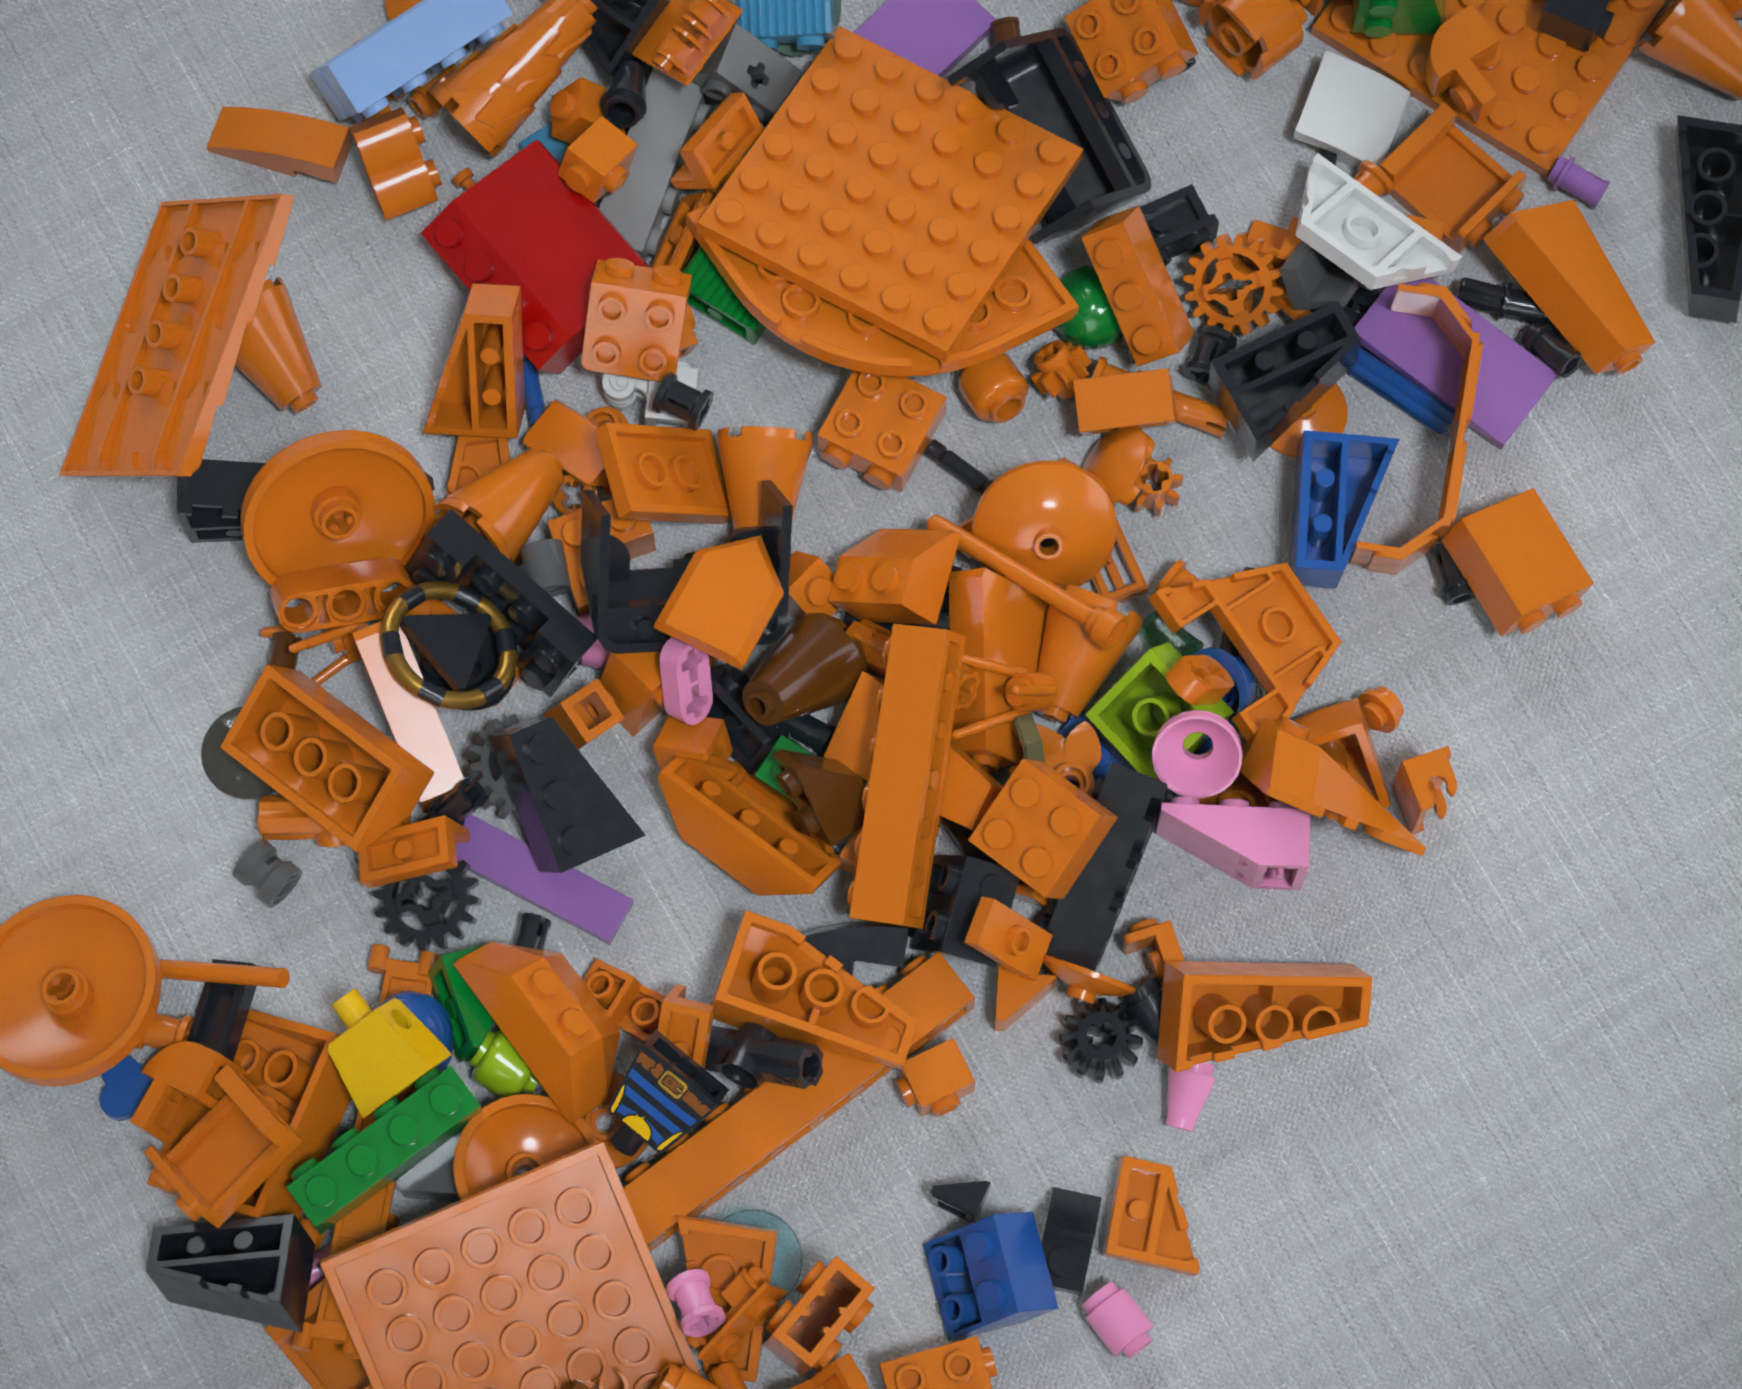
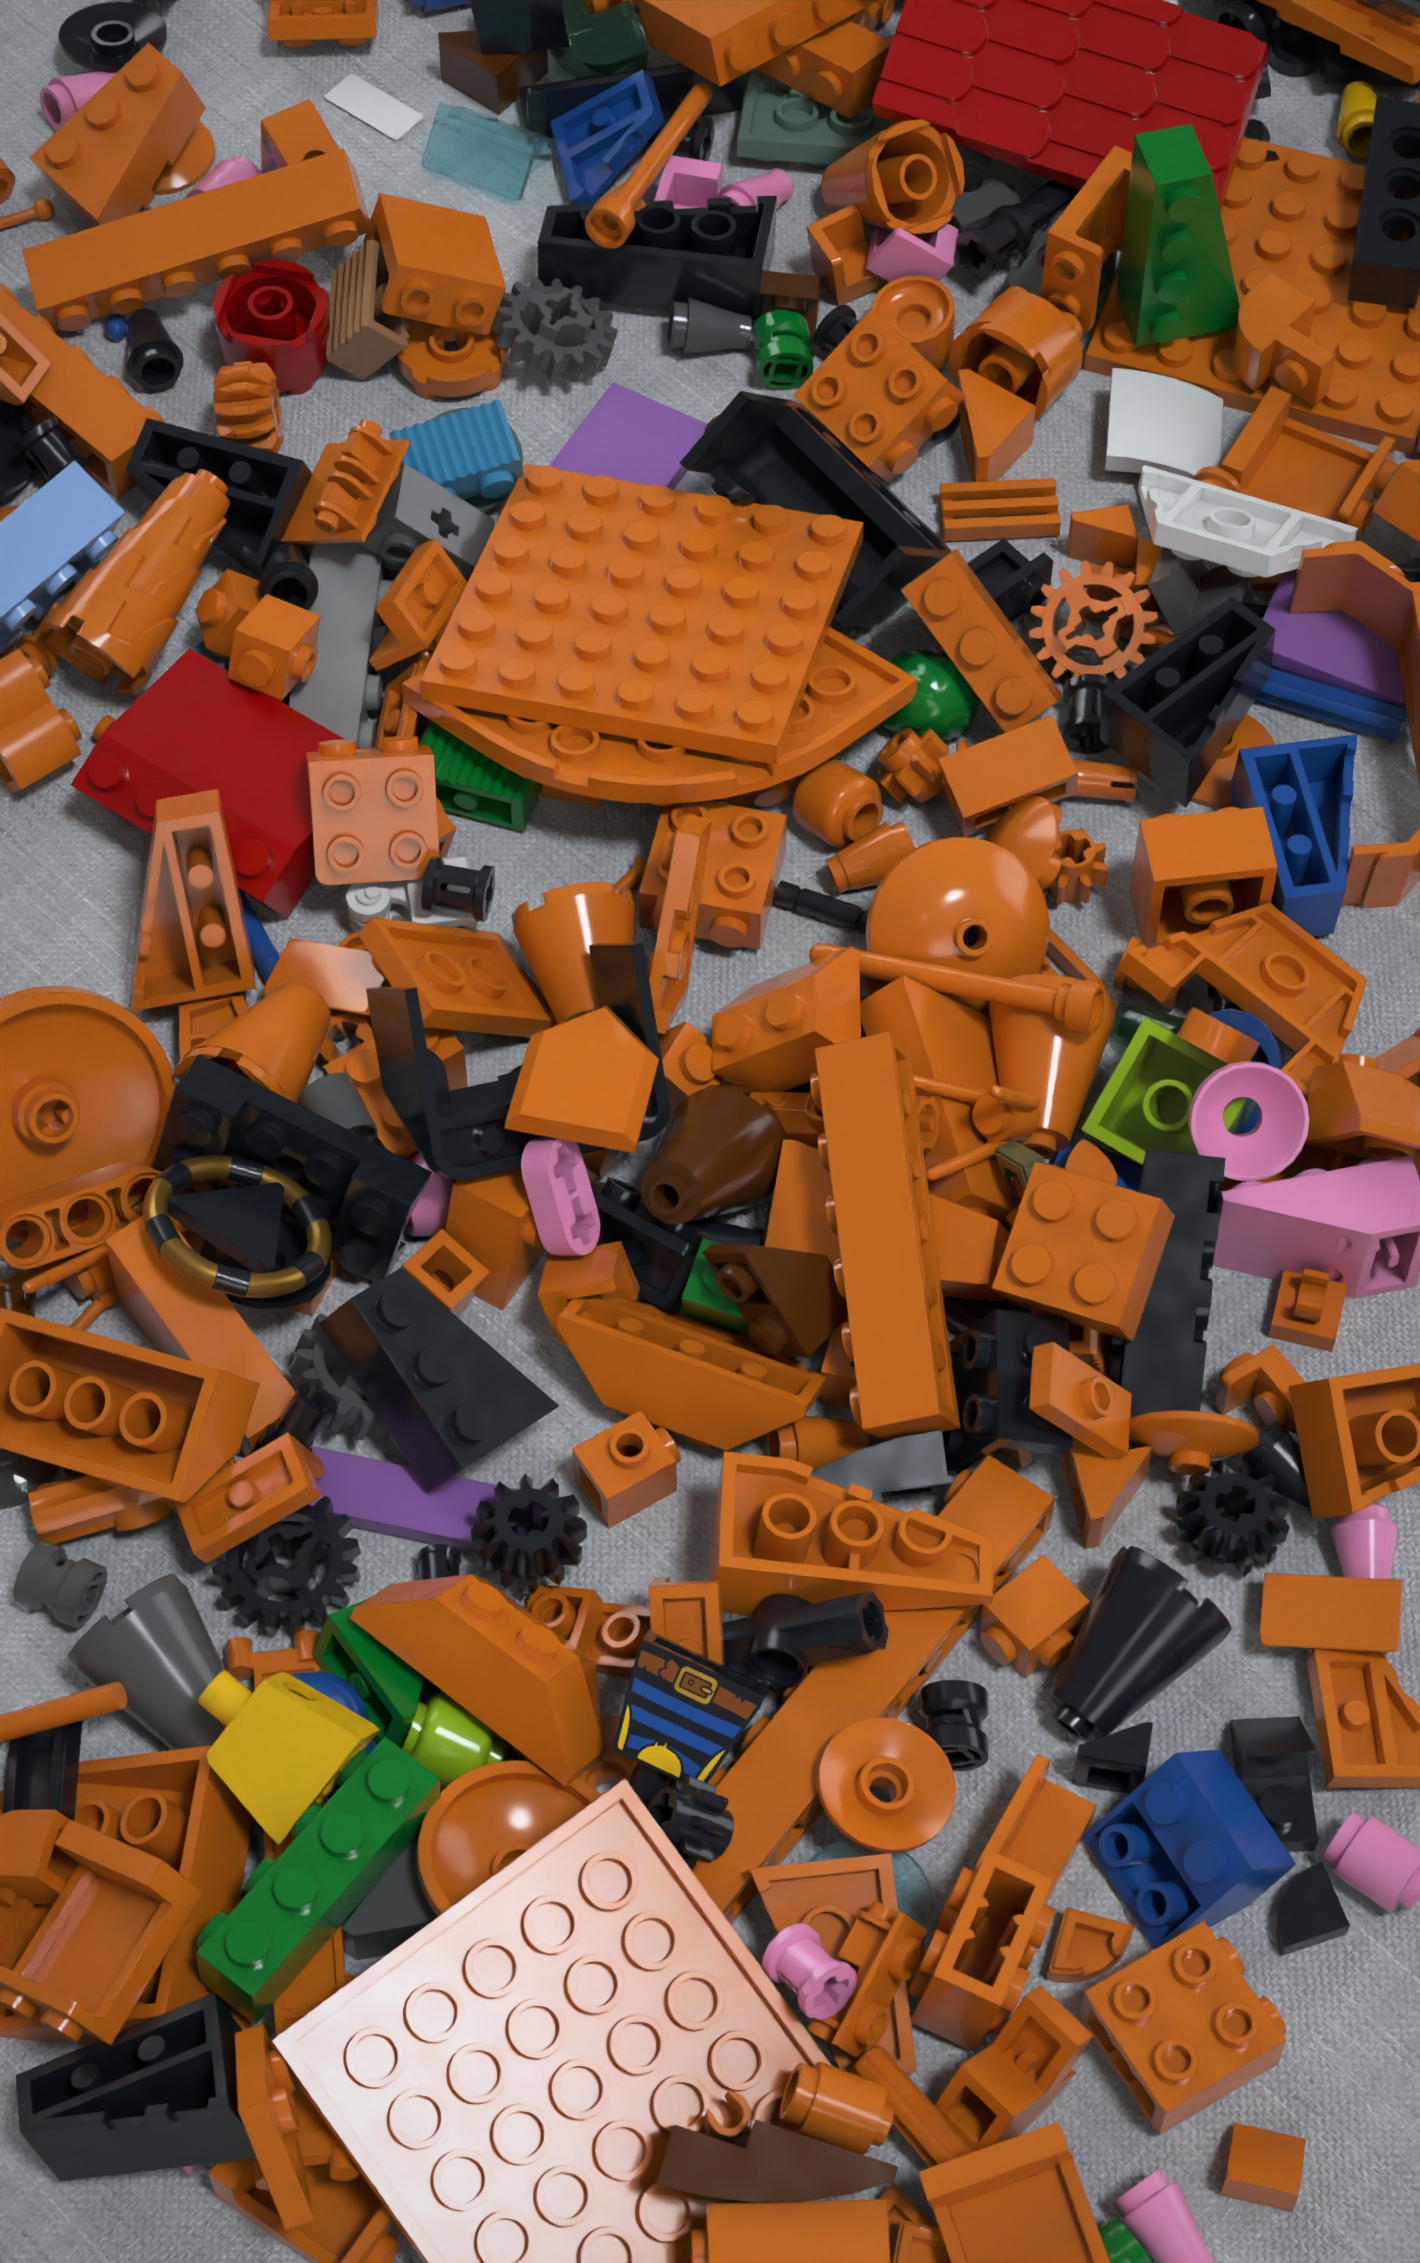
camera: 15 degrees left, 15 degrees down
(306, 1315) = (272, 2123): none -> orange wing
(321, 958) = (160, 1658): none -> dark grey cone
(599, 942) = (529, 1533): none -> black gear
(646, 1176) = (694, 1820): none -> black gear
(684, 889) = (626, 1468): none -> orange brick
(815, 1175) = (902, 1762): none -> orange dish
(817, 410) = (632, 877): none -> orange piece
(822, 907) = (816, 1440): none -> orange cone
(835, 474) = (677, 917): none -> orange wing
(856, 1142) = (955, 1720): none -> black wheel
(887, 1240) = (1042, 1825): none -> orange panel
(900, 1323) = (1087, 1946): none -> orange tile
(995, 1120) = (1132, 1644): none -> black cone
(1008, 440) = (869, 857): none -> orange cone
(1060, 1340) = (1310, 1912): none -> black tile
(1145, 1132) = (1331, 1612): none -> orange slope
(1203, 135) = (999, 502): none -> orange tile
(1212, 891) = (1308, 1309): none -> orange tile
(1217, 80) = (993, 426): none -> orange slope
(1243, 525) = (1199, 870): none -> orange brick
(1271, 201) = (1103, 536): none -> orange slope

